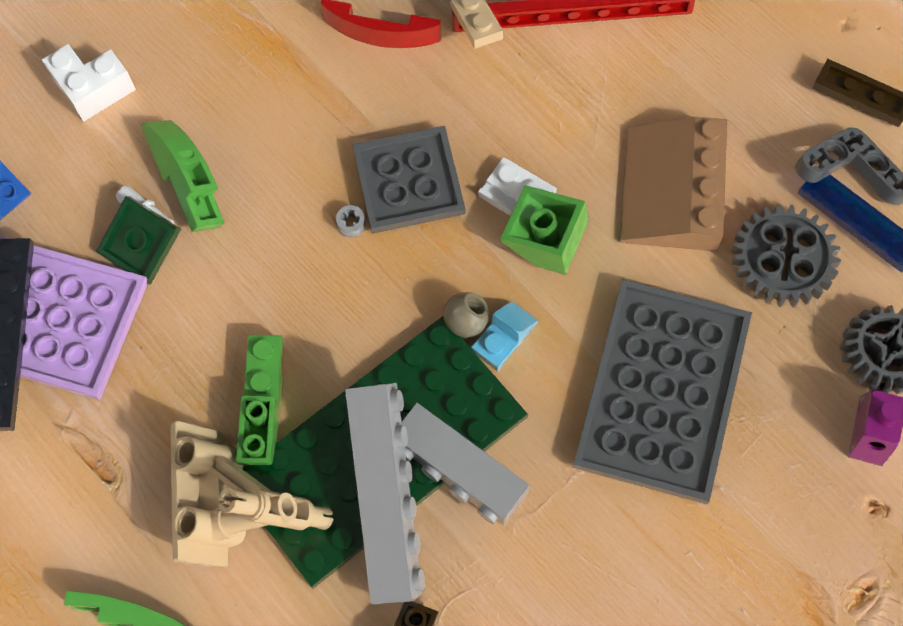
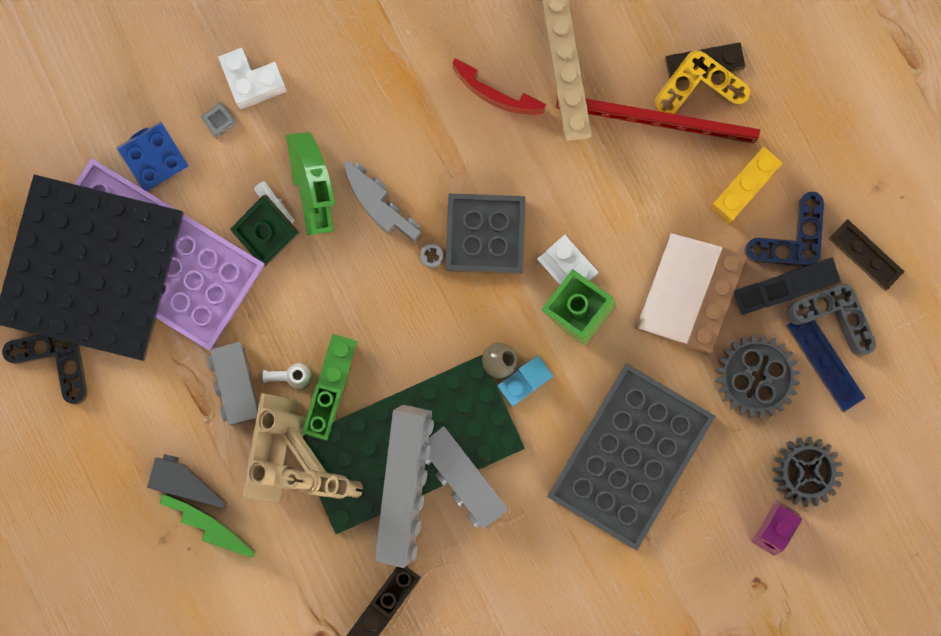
camera: 15 degrees right, 15 degrees up
(59, 136) = (218, 120): none -> light grey tile
(87, 571) = (179, 480): none -> dark grey slope
(135, 429) = (234, 383): none -> light grey brick
(215, 410) = (278, 376): none -> white bar
(263, 173) = (372, 197): none -> light grey slope
(698, 52) = (746, 185): none -> yellow brick
(777, 105) = (795, 247): none -> dark blue beam
(783, 145) = (787, 286): none -> black slope

